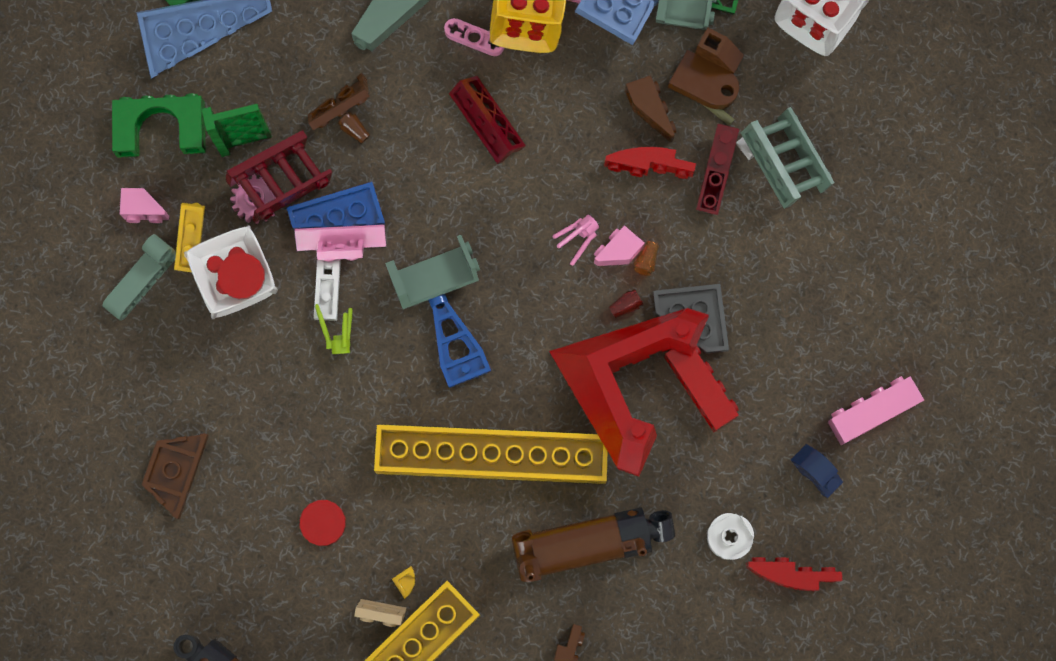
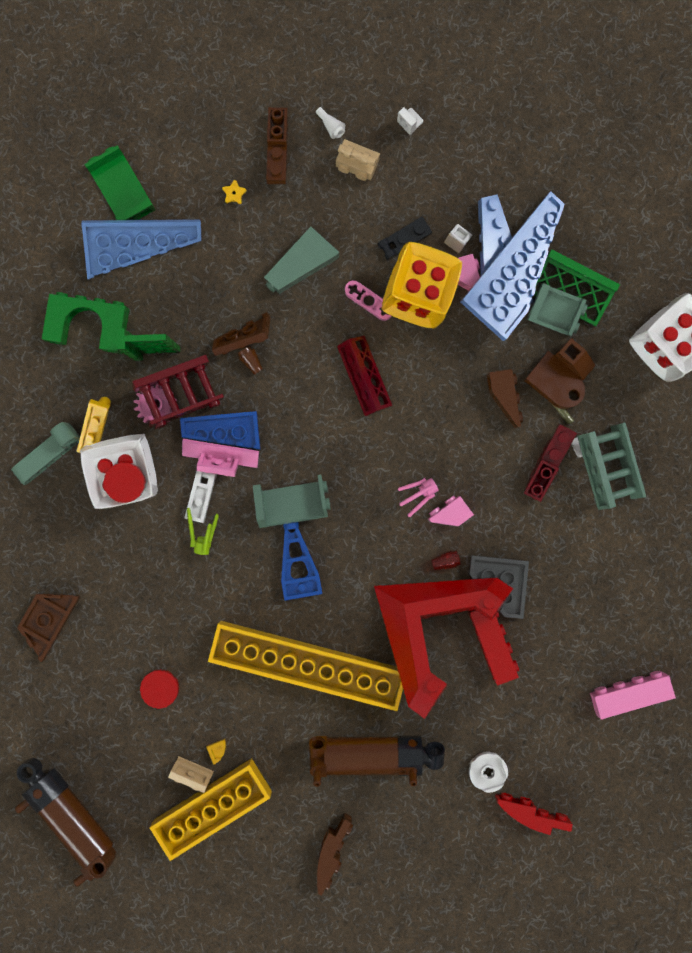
camera: 10 degrees right, 10 degrees up
(139, 205) = (58, 389): bright pink slope -> none
(640, 159) = (487, 440): red slope -> none
(646, 259) = (472, 526): clear orange cone -> none
(817, 469) = (572, 734): dark blue brick -> none

